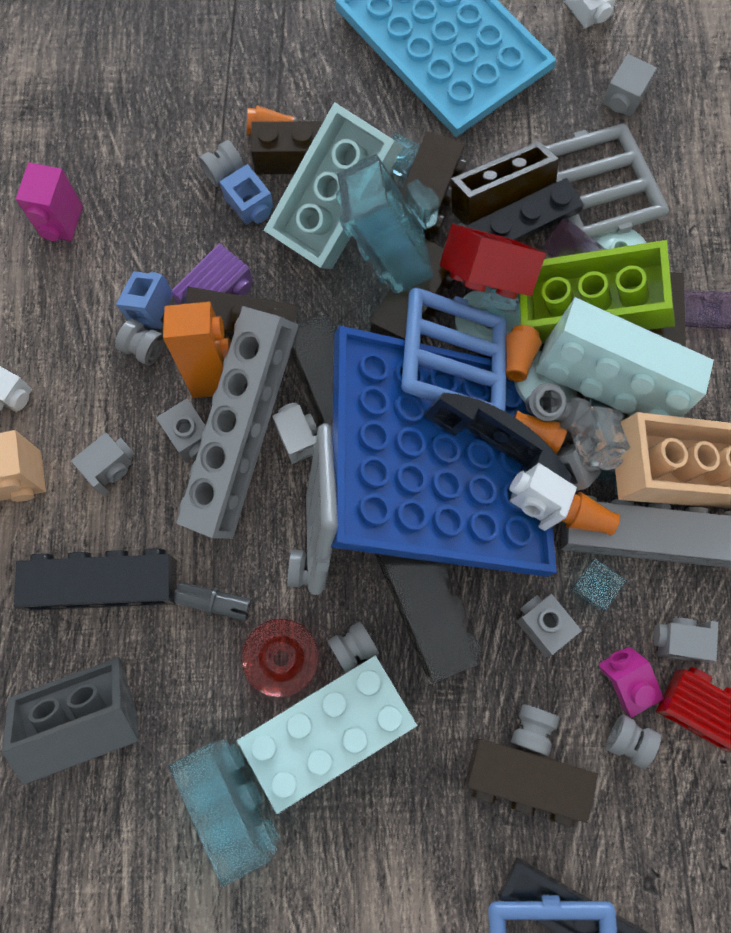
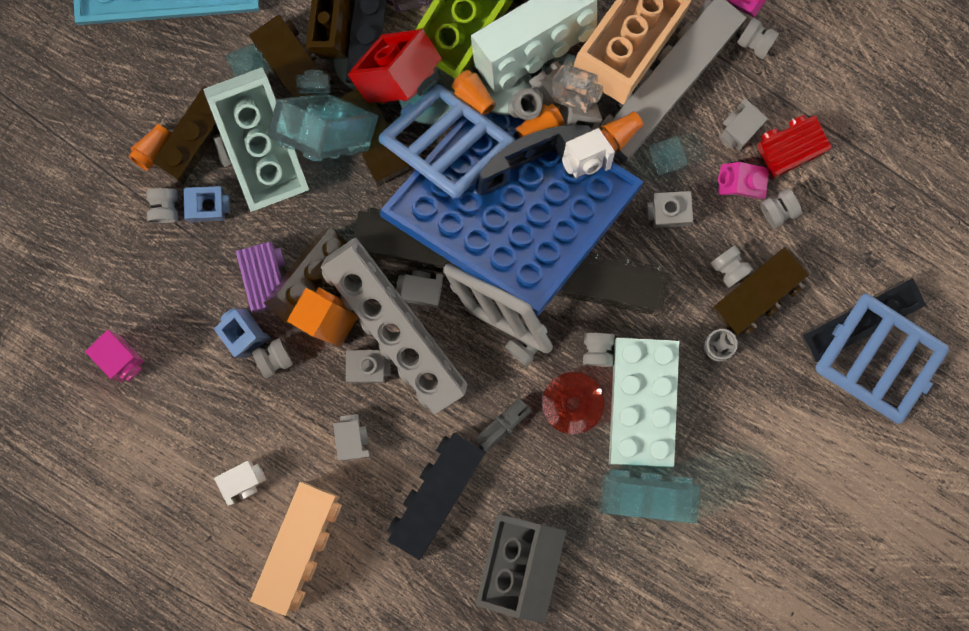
camera: 55 degrees left, 10 degrees up
(448, 779) = (724, 342): none -> light grey wheel

